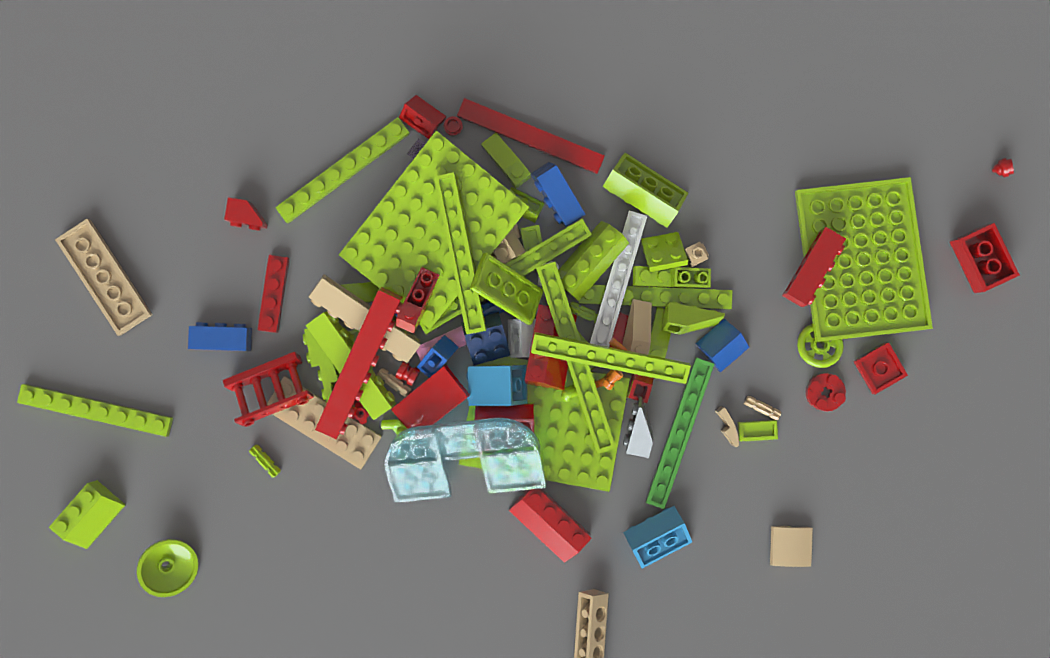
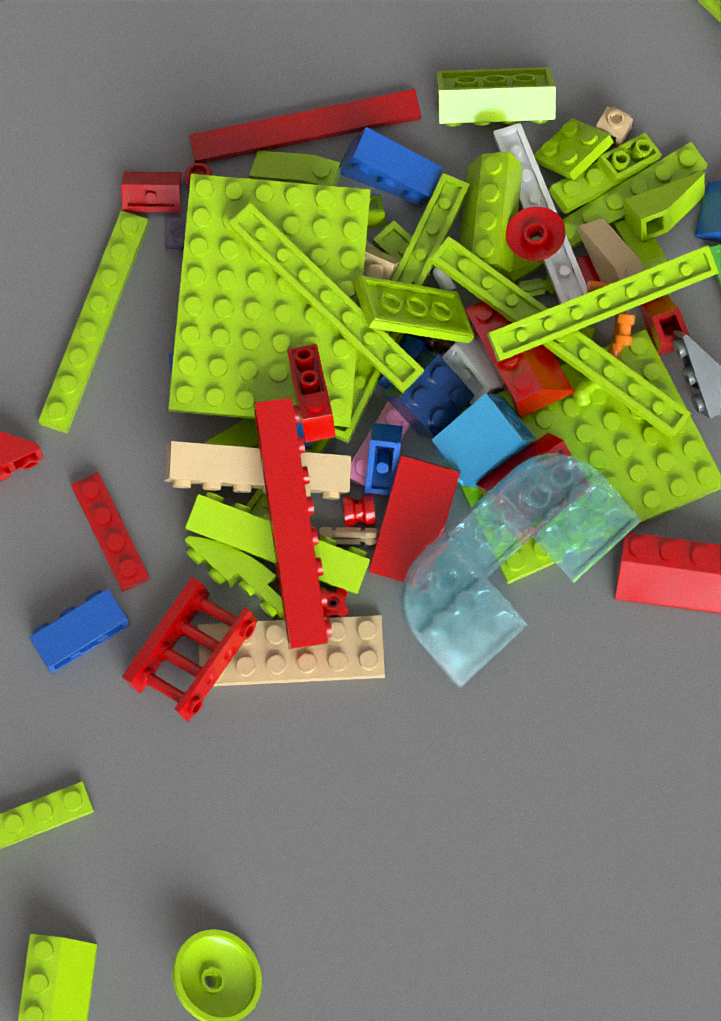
camera: 30 degrees left, 15 degrees down
(264, 460) = (248, 752): lime axle -> none
(394, 424) = (388, 589): lime arm -> none
(604, 281) = (532, 223): none -> red dish

